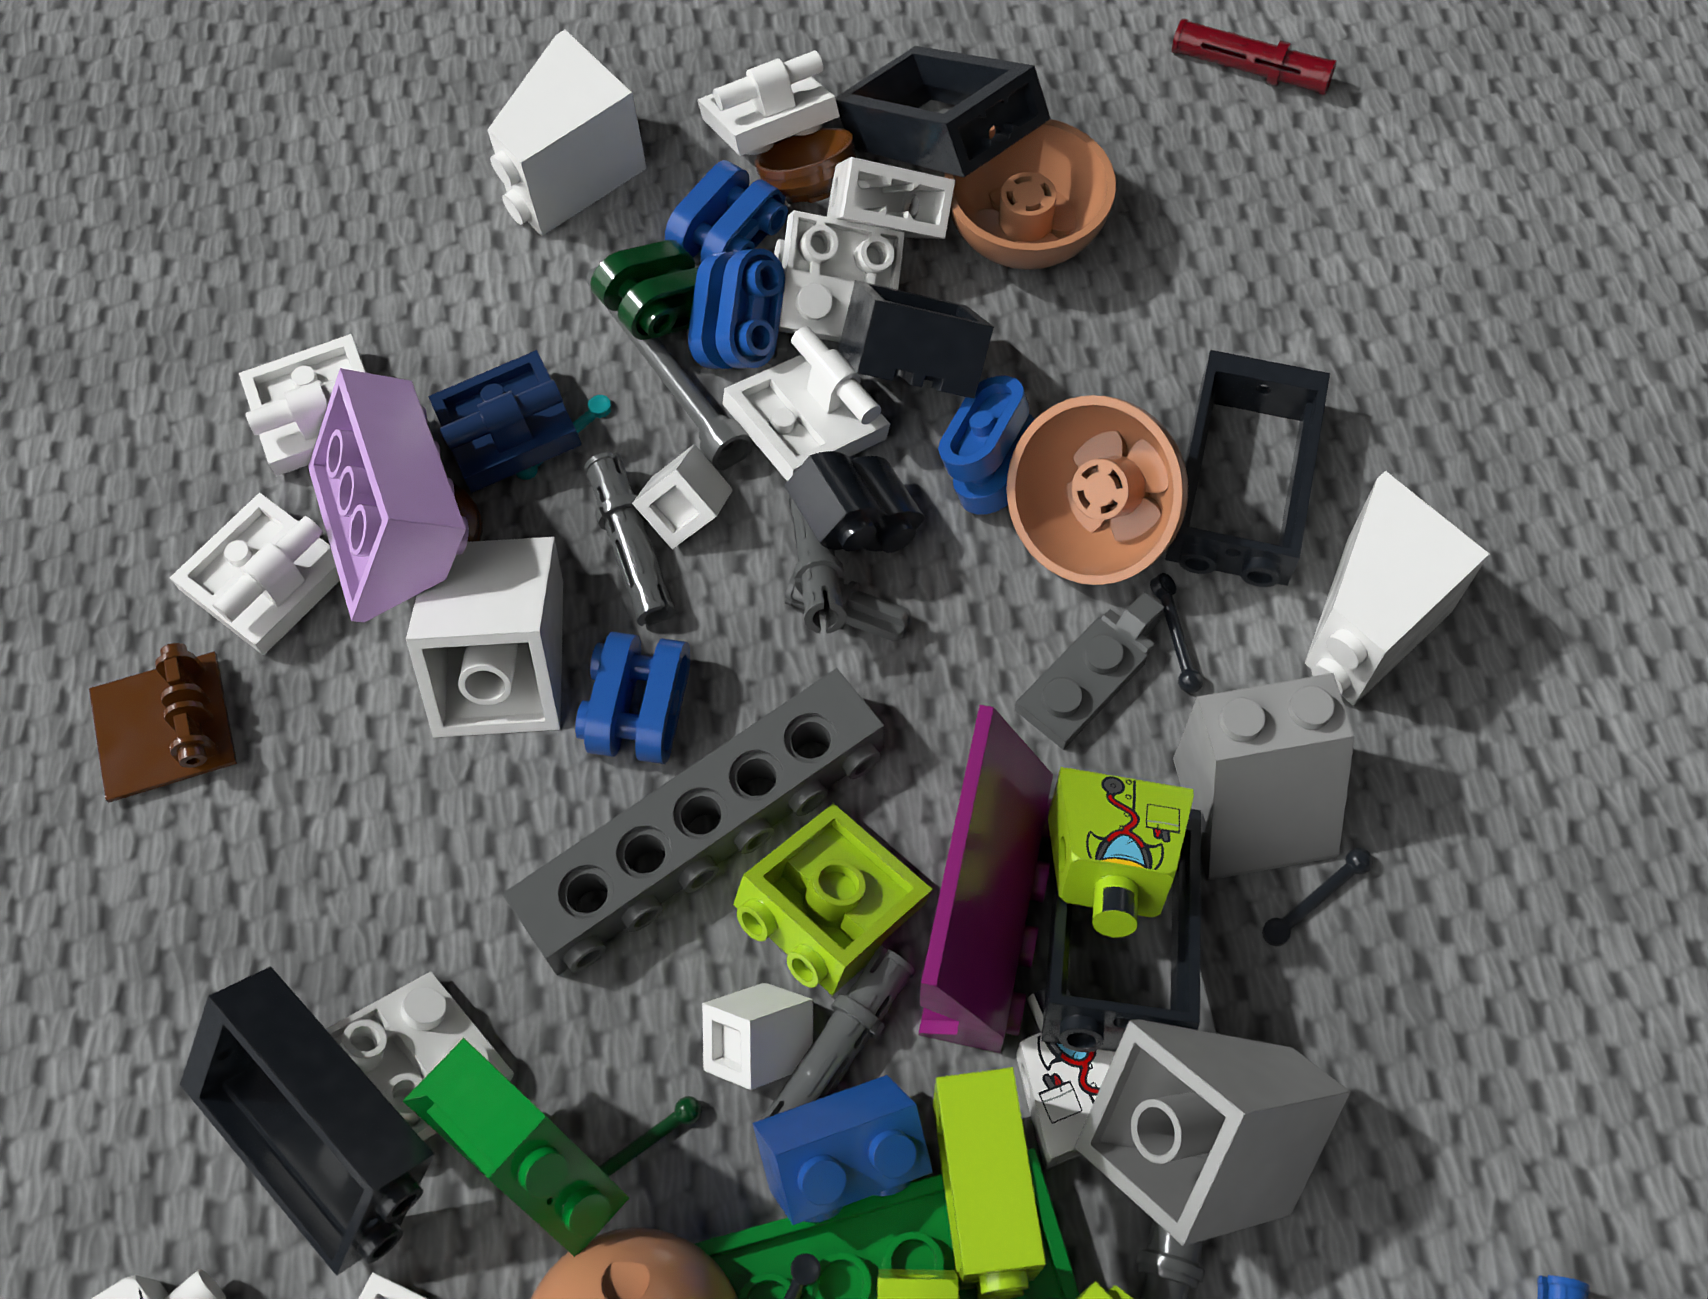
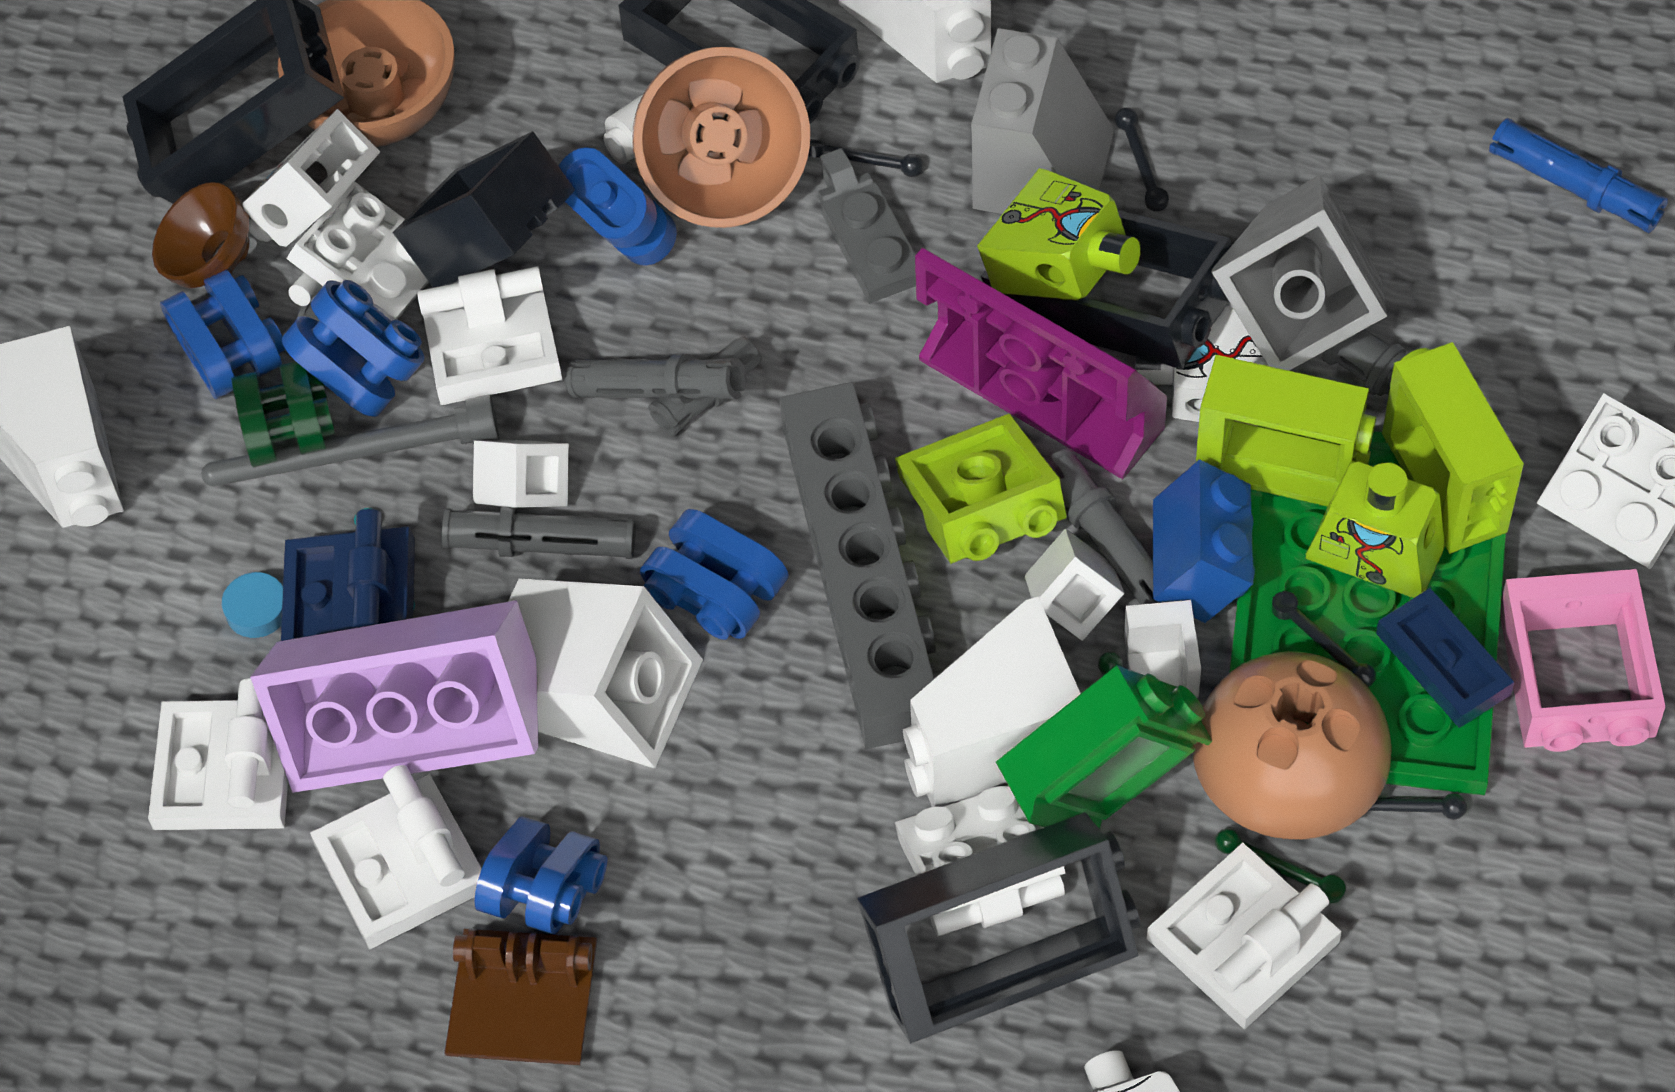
camera: 65 degrees left, 5 degrees down
(259, 684) = (539, 875): none -> blue brick
(477, 355) = (253, 604): none -> dark azure tile
(553, 1018) = (986, 707): none -> white slope
(710, 1160) = (1163, 643): none -> white panel
(770, 104) = (111, 245): white plate -> none
(855, 502) = (623, 326): black brick -> none

